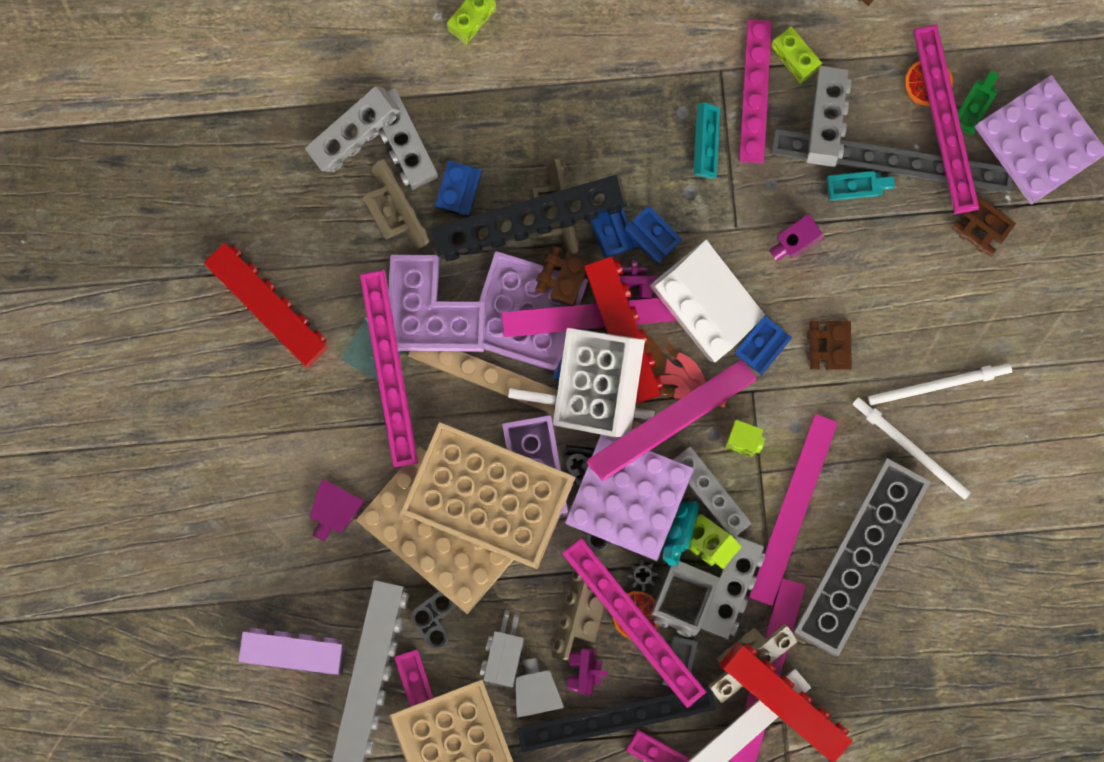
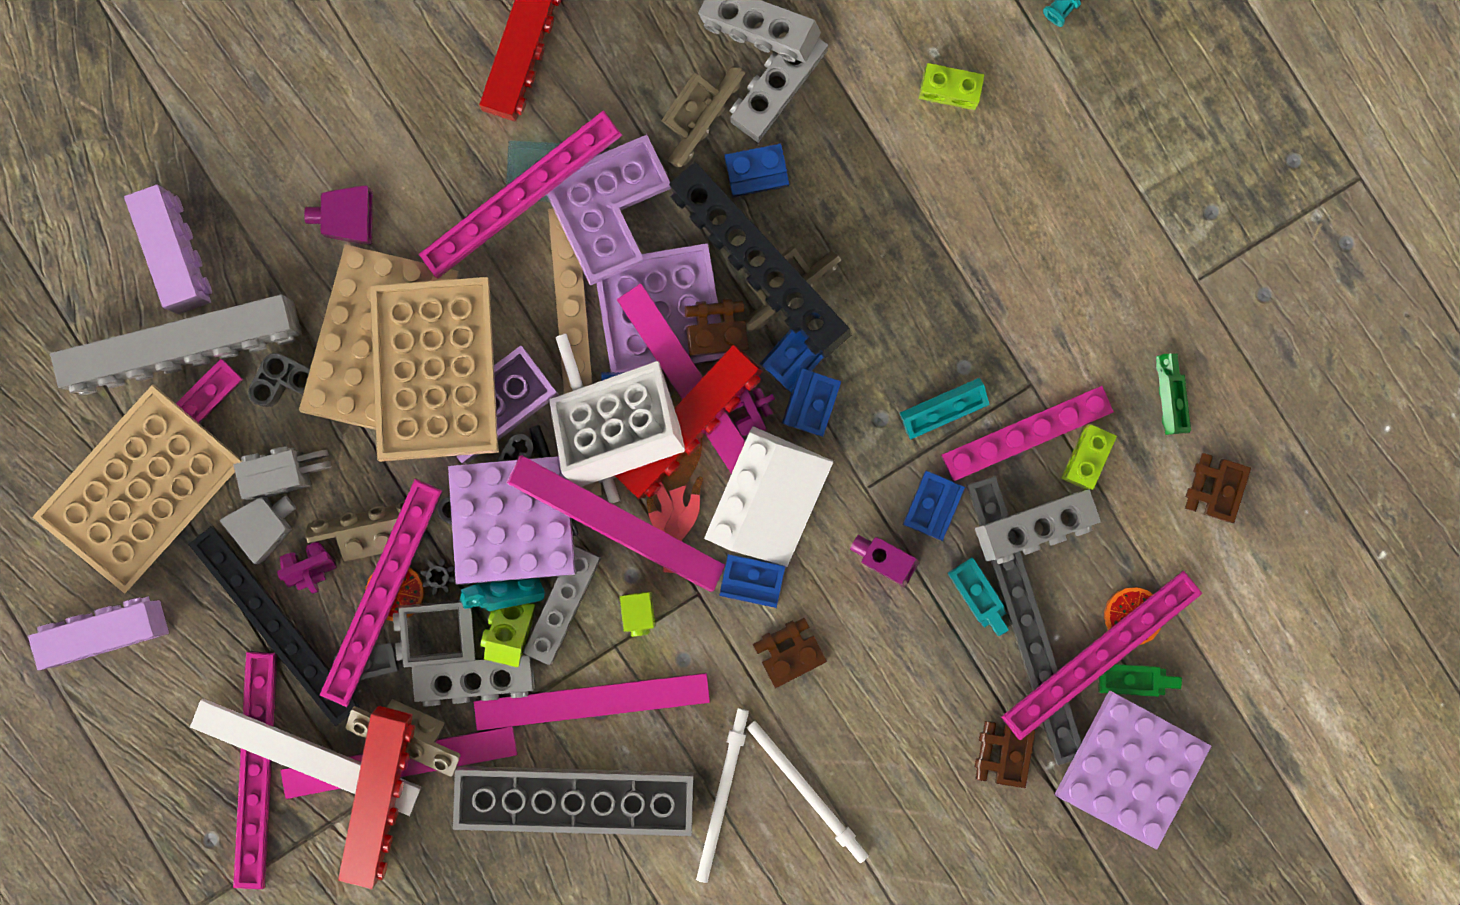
camera: 60 degrees right, 5 degrees up
(774, 185) = (933, 505): none -> blue plate

